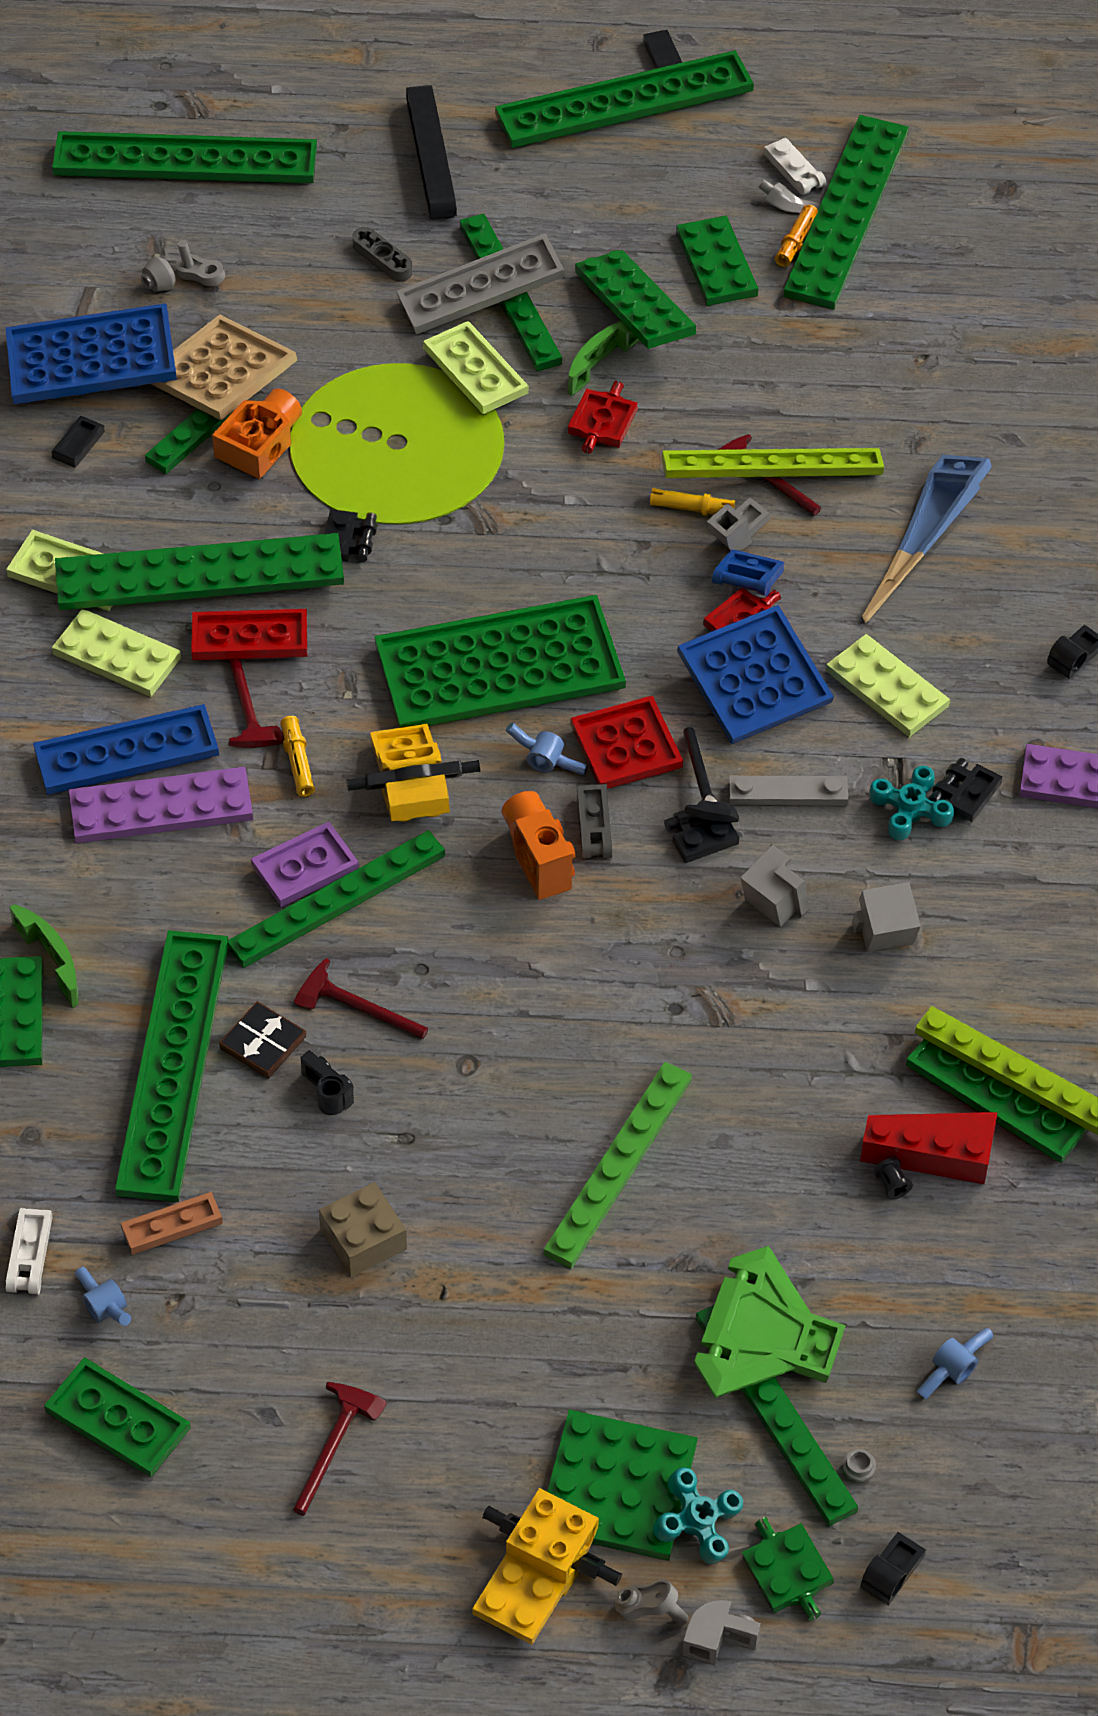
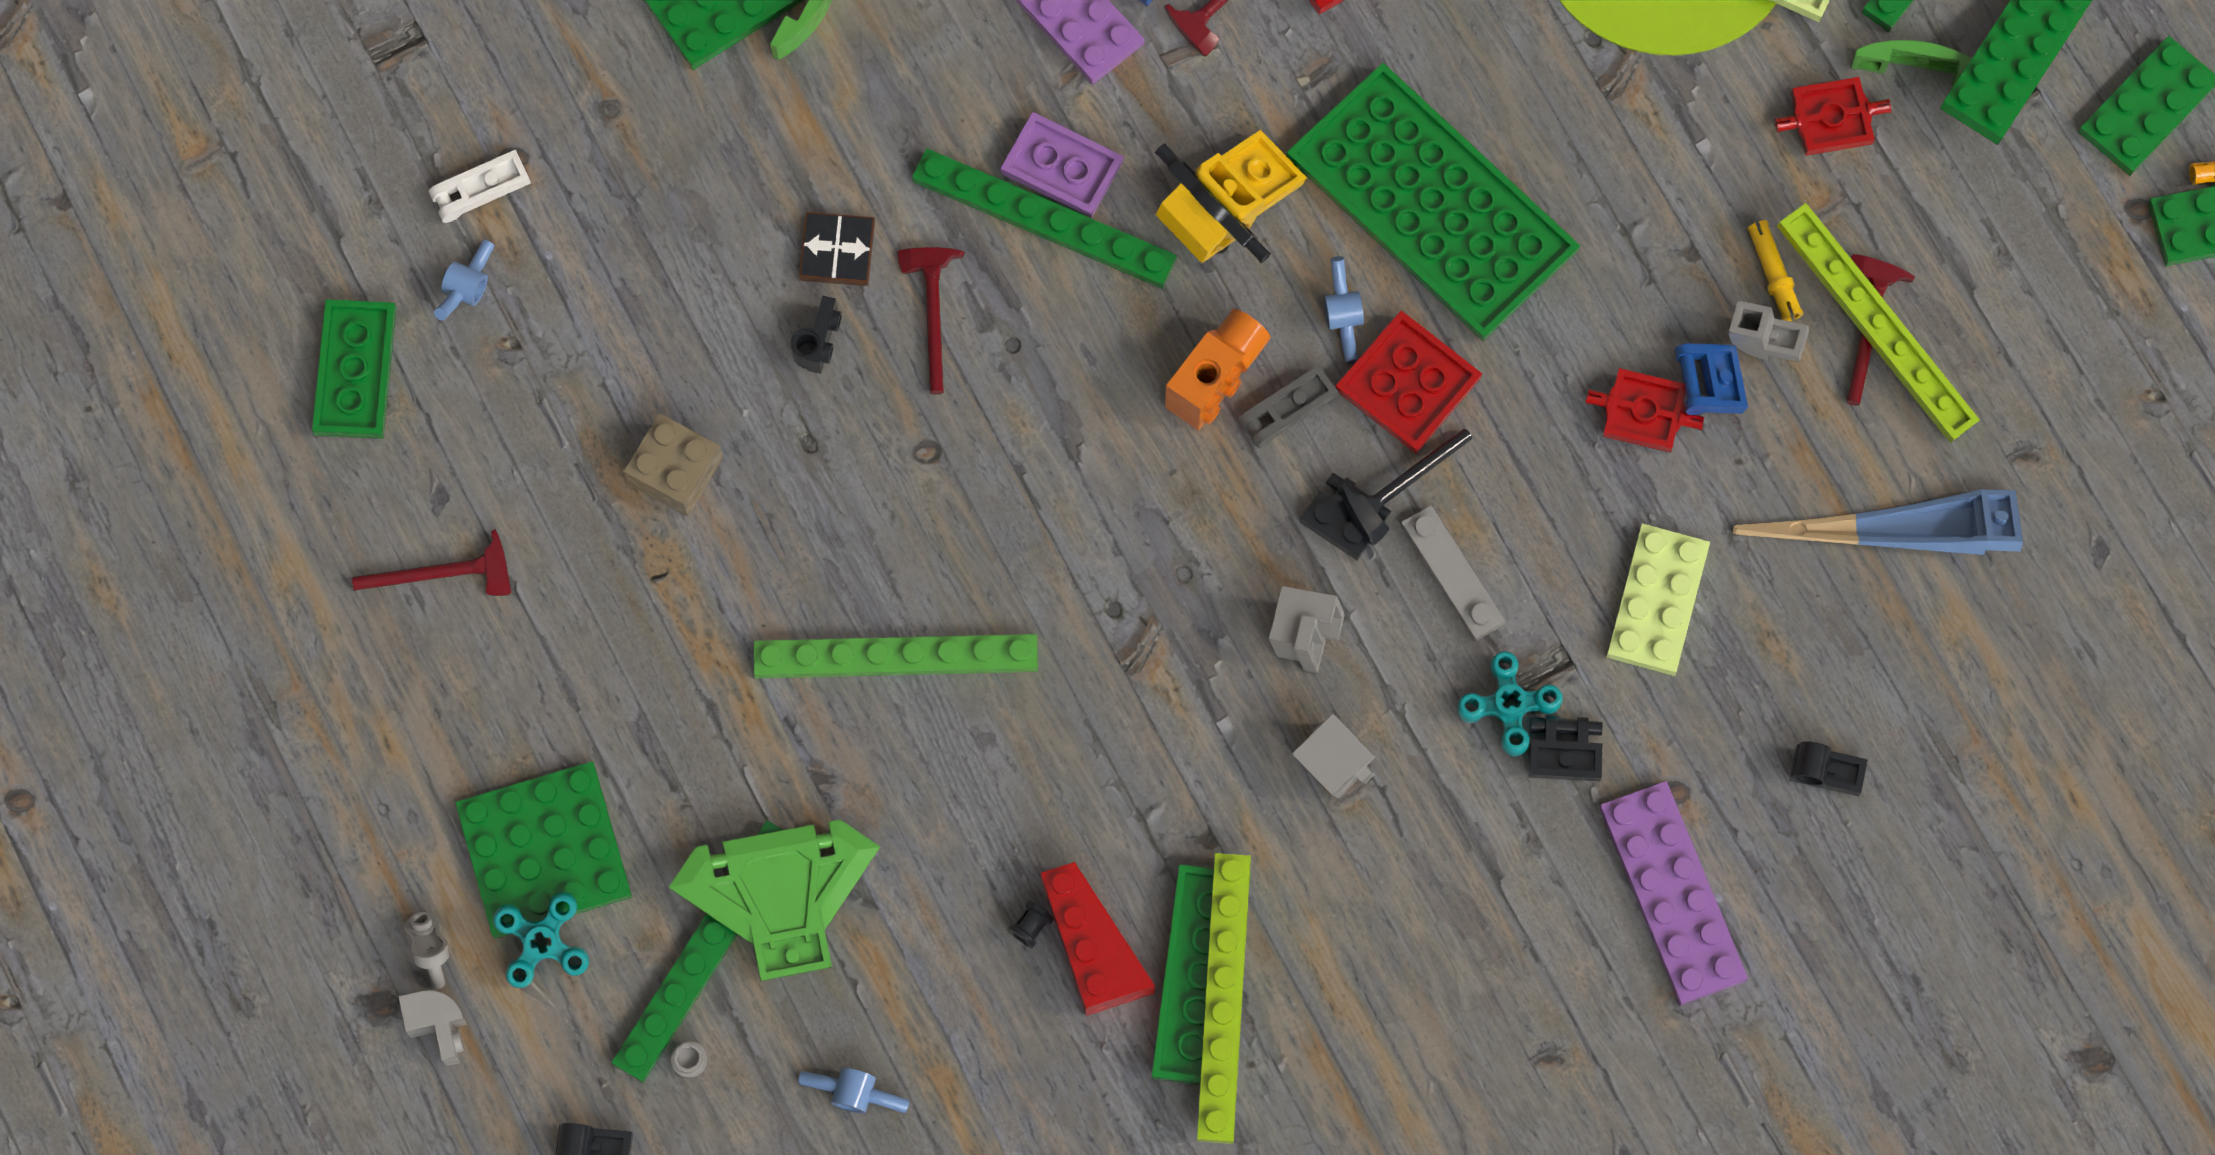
camera: 60 degrees right, 20 degrees up
(171, 1223) = (582, 291): nougat plate -> none
(172, 1067) = (757, 185): green plate -> none
(295, 747) = (1197, 72): yellow pin -> none
(540, 1564) = (412, 825): yellow piece -> none
(755, 674) = (1574, 459): blue plate -> none
(788, 1568) = (541, 1050): green plate -> none

